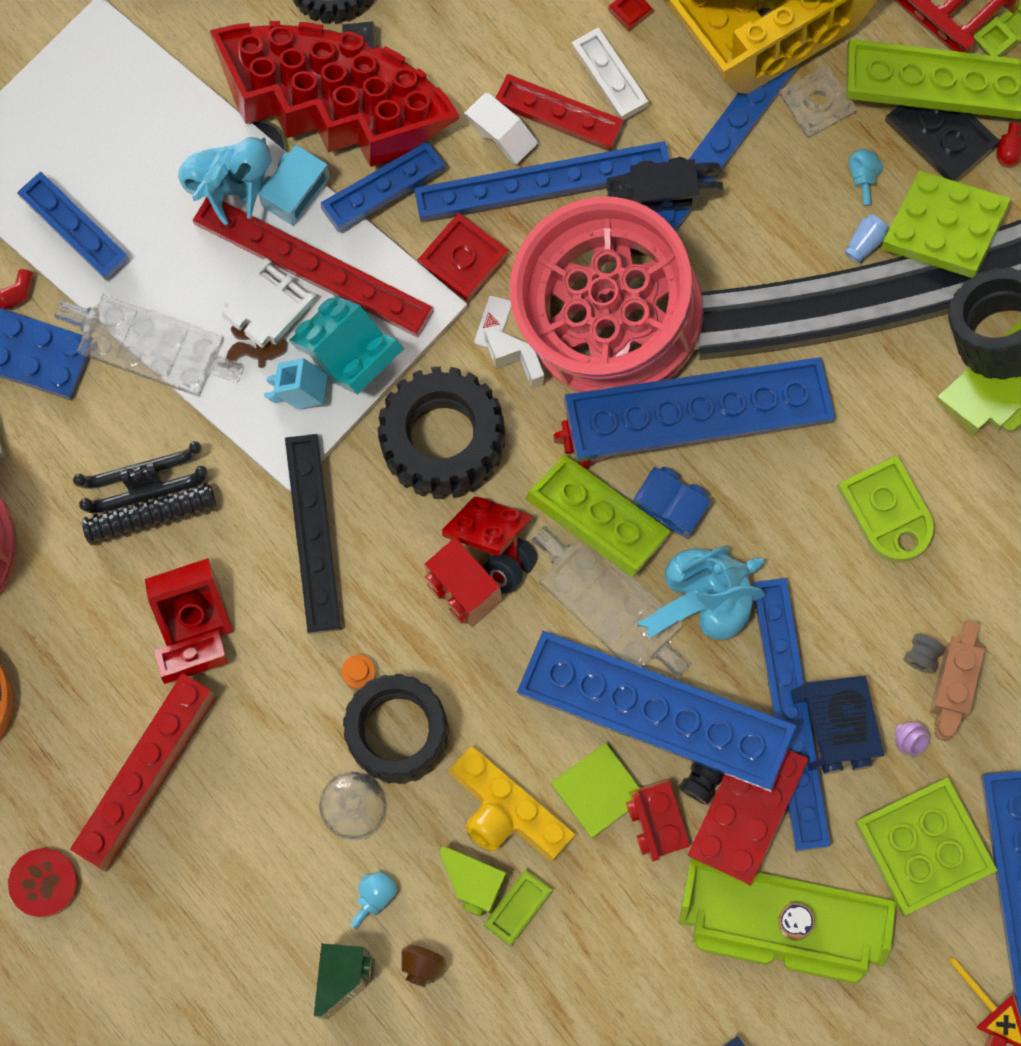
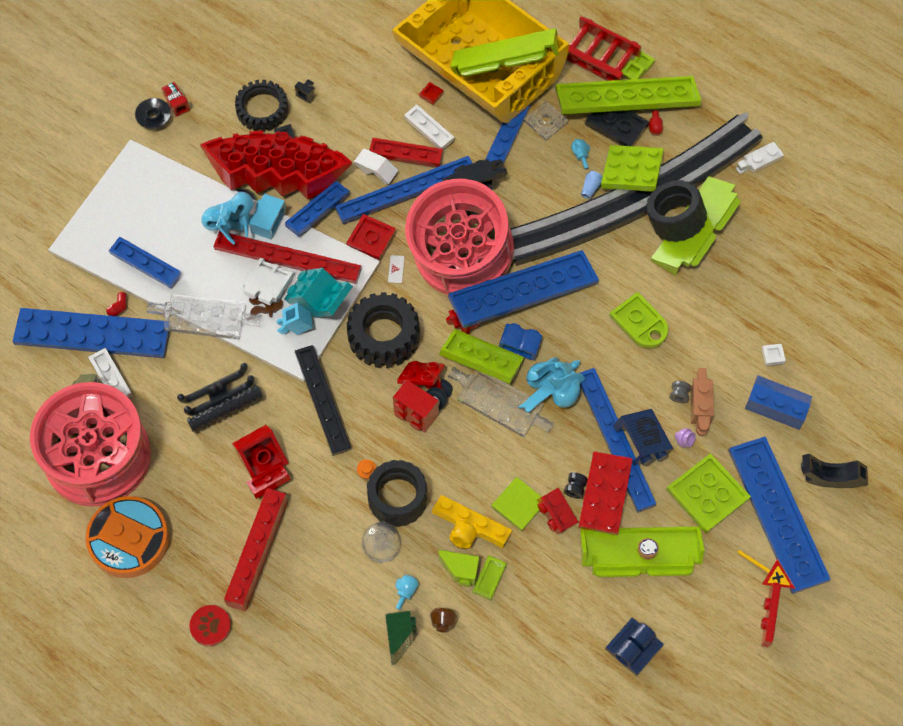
camera: 20 degrees left, 10 degrees down
(507, 349) = (407, 280): white slope -> none
(657, 711) = (541, 451): blue plate -> none

